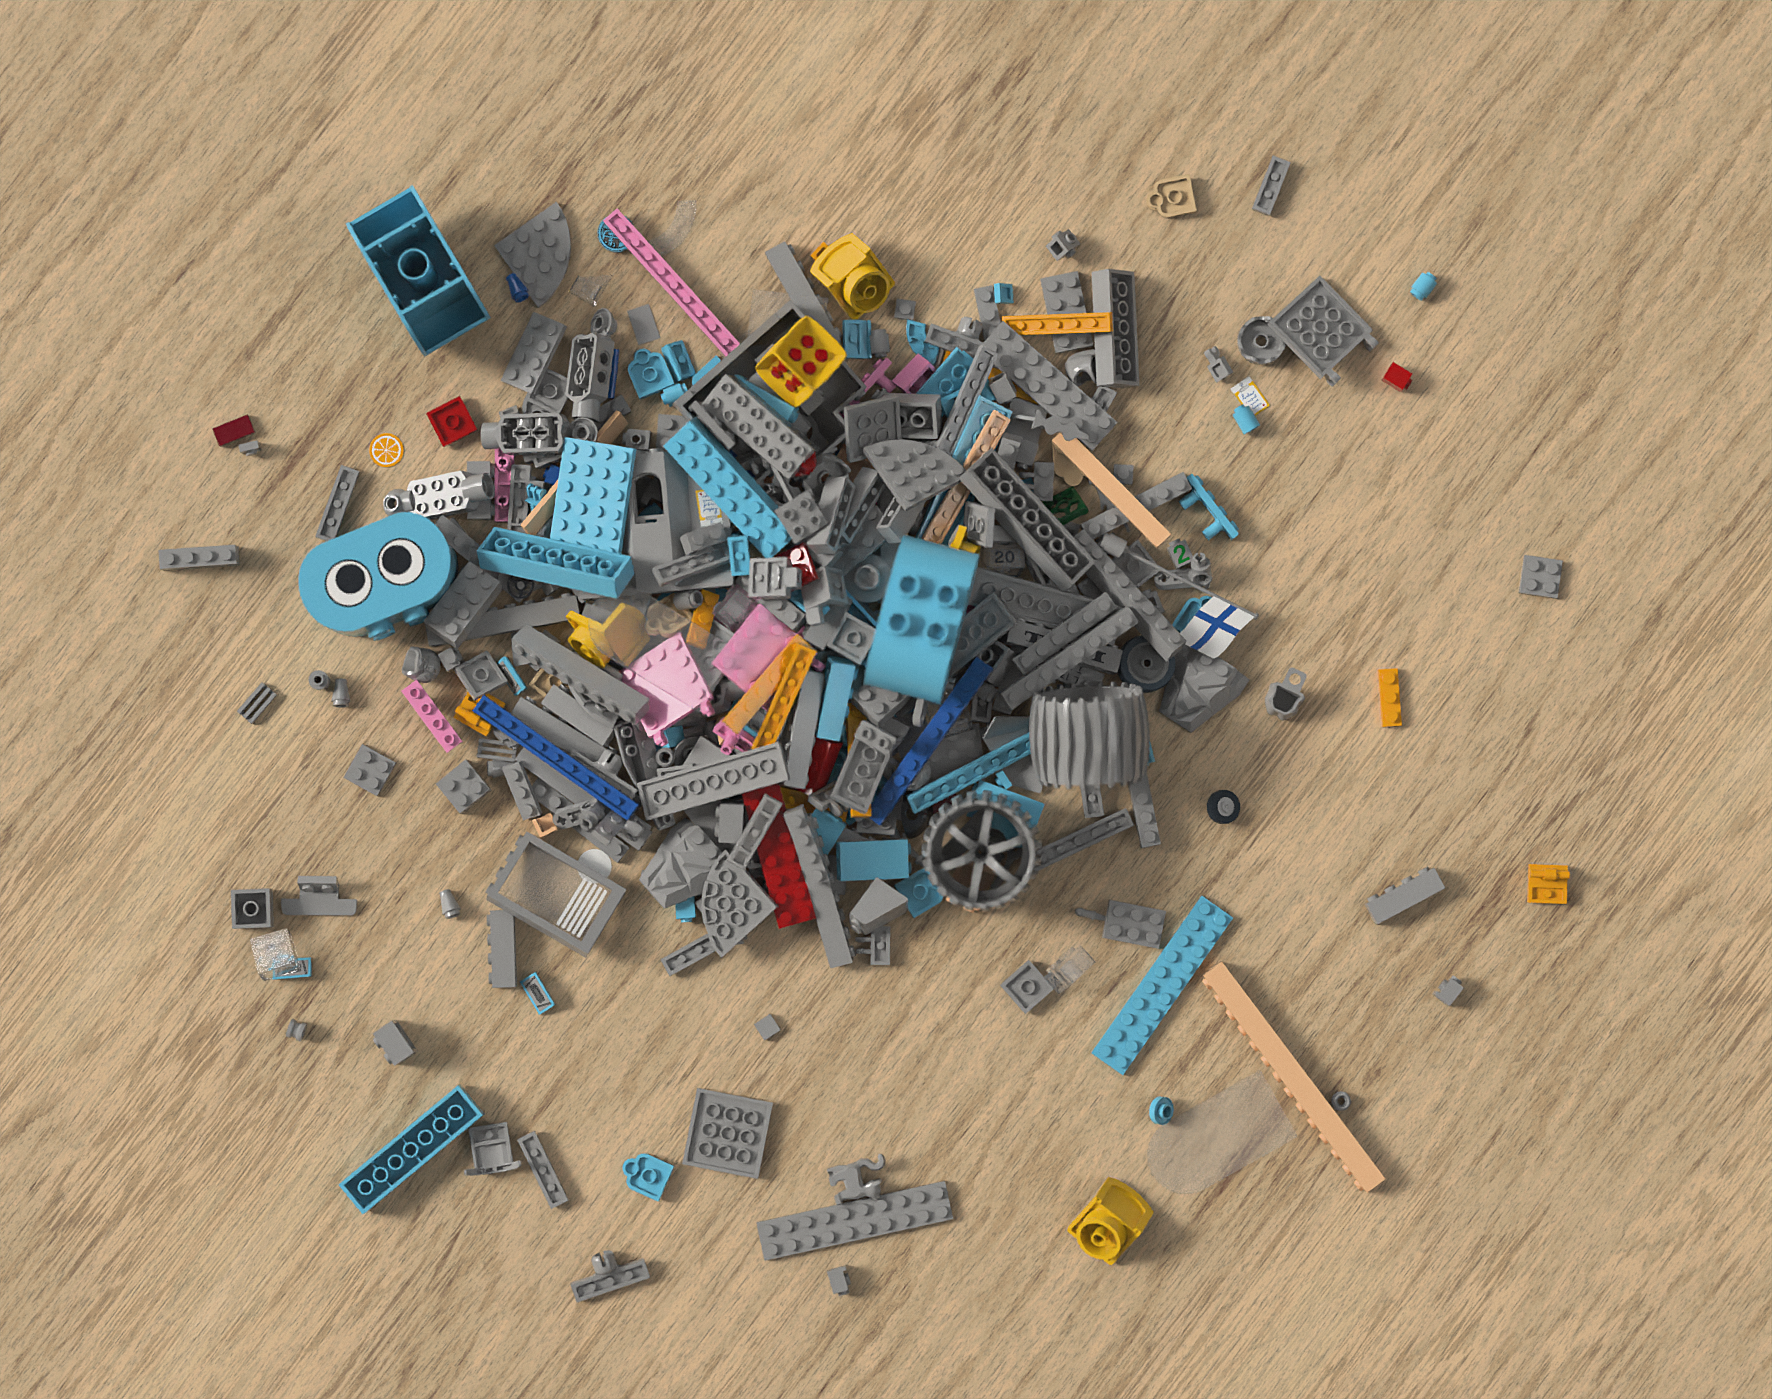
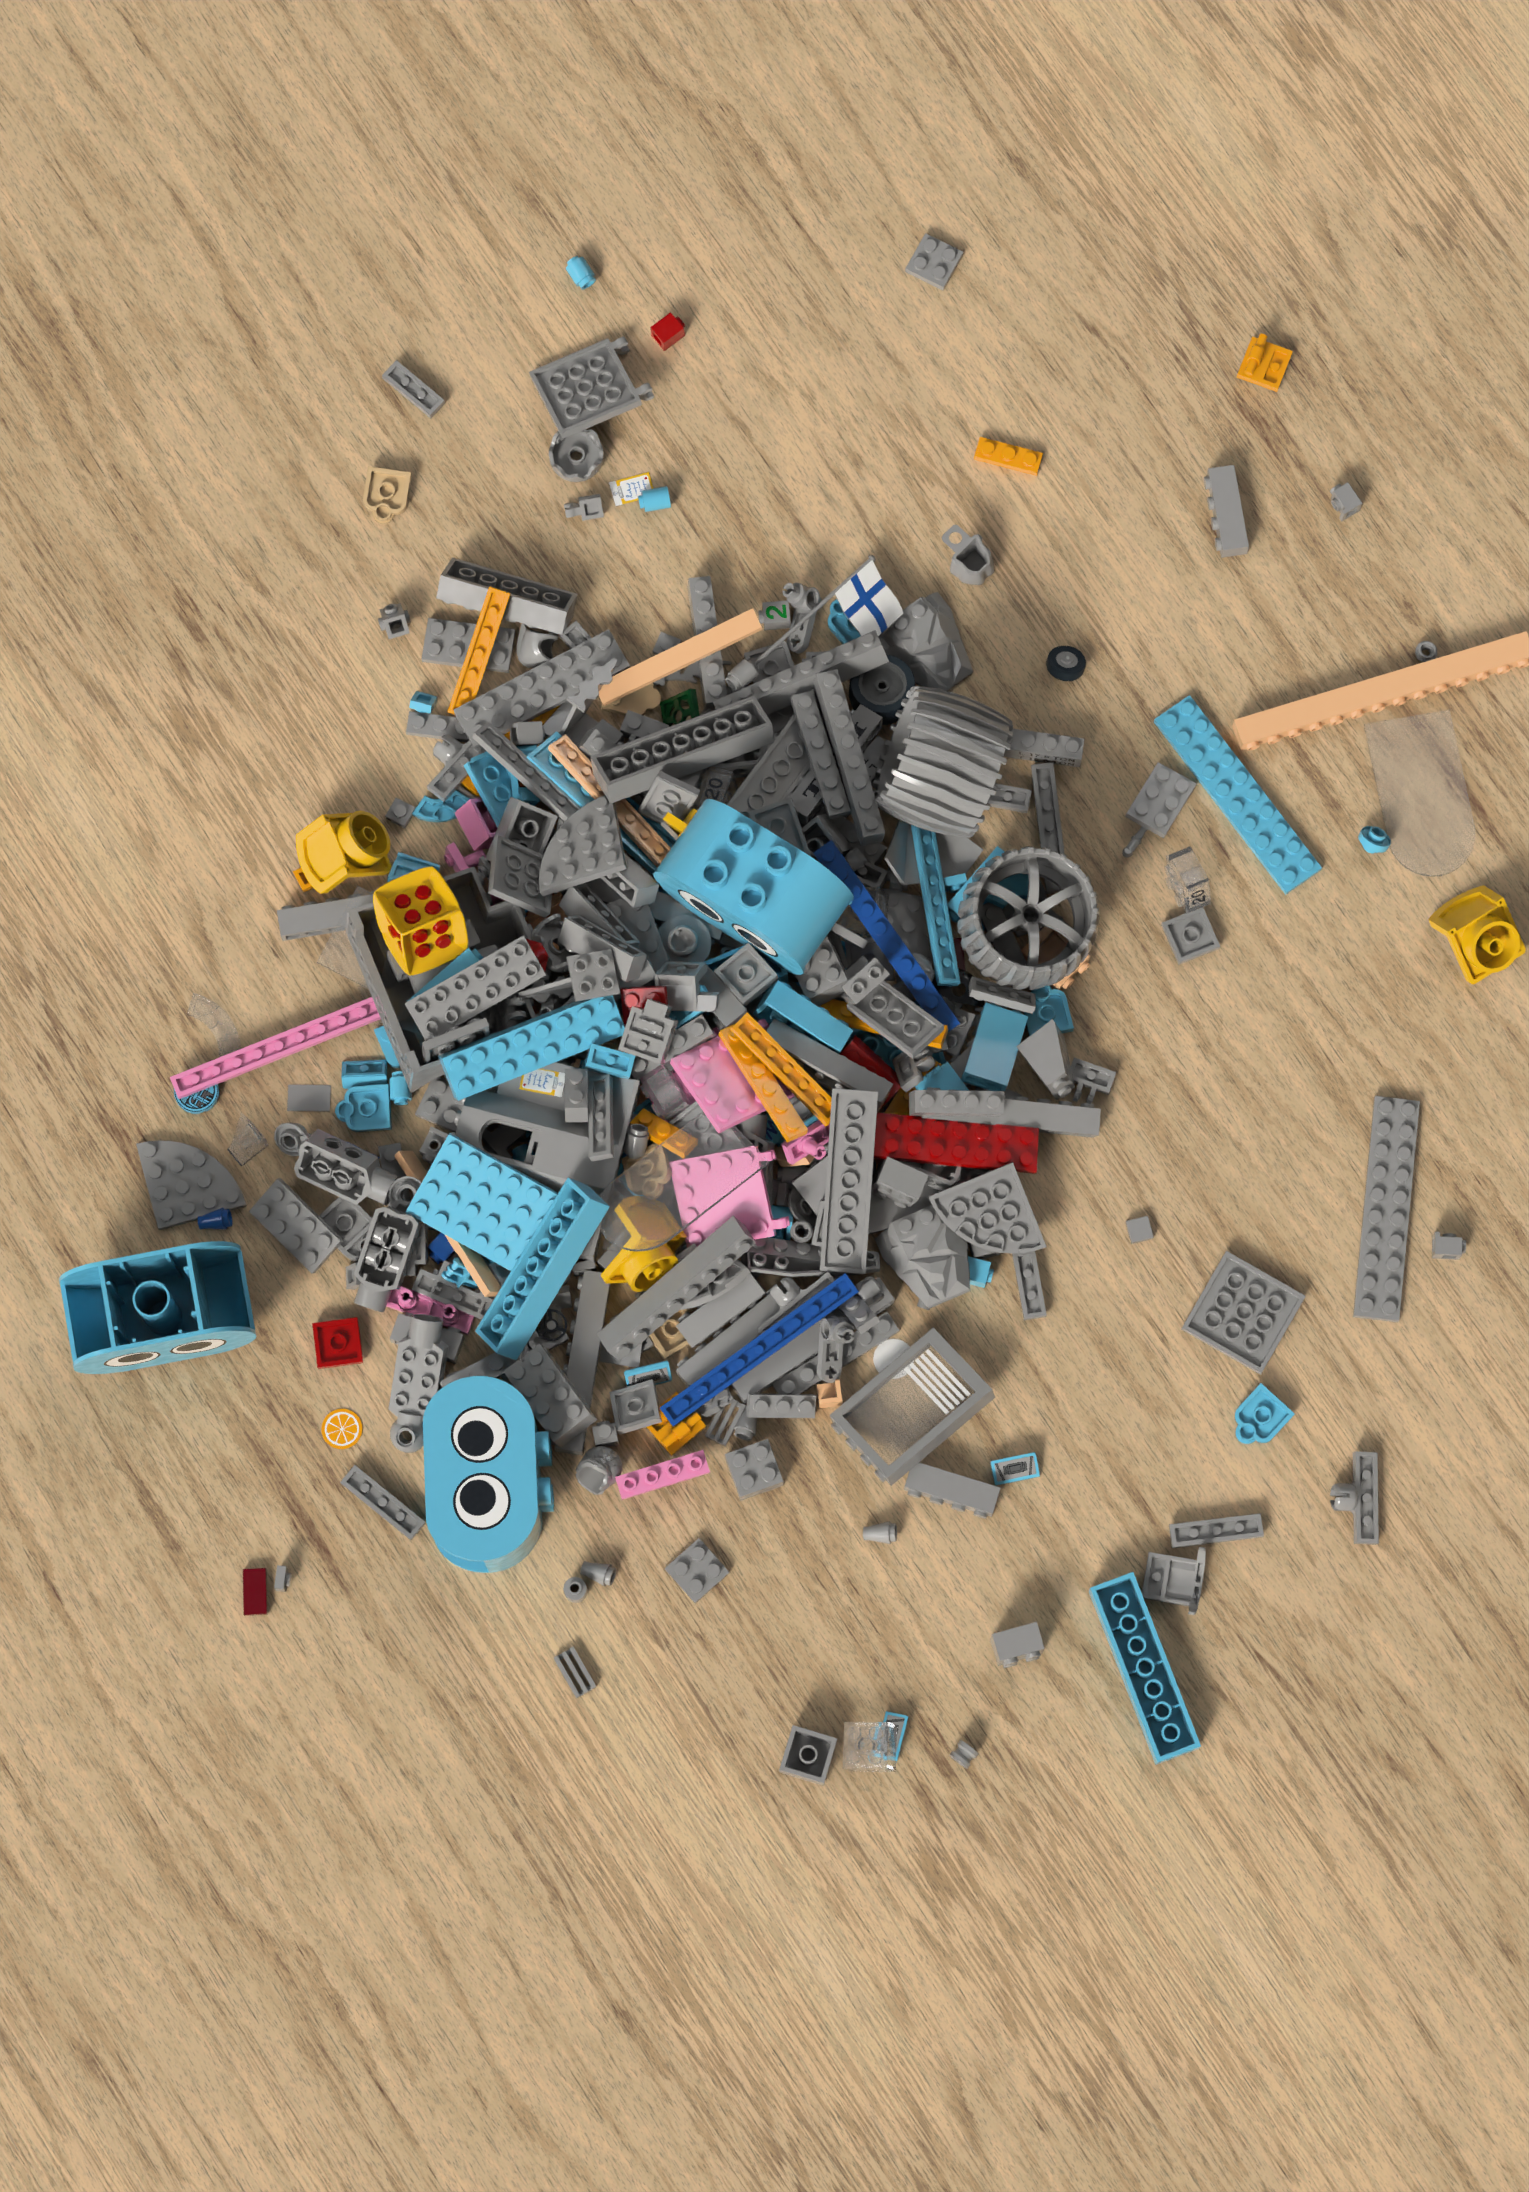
camera: 70 degrees left, 10 degrees down
(199, 557) = (385, 1679): light grey brick -> none
(319, 897) = (821, 1678): light grey plate -> none
(754, 832) = (921, 1155): light grey plate -> none
(853, 1179) = (1341, 1193): light grey animal -> none
(879, 343) = (427, 850): light grey brick -> none
(915, 839) = (1002, 995): none -> light grey plate
(1221, 522) = (744, 562): medium azure plate -> none

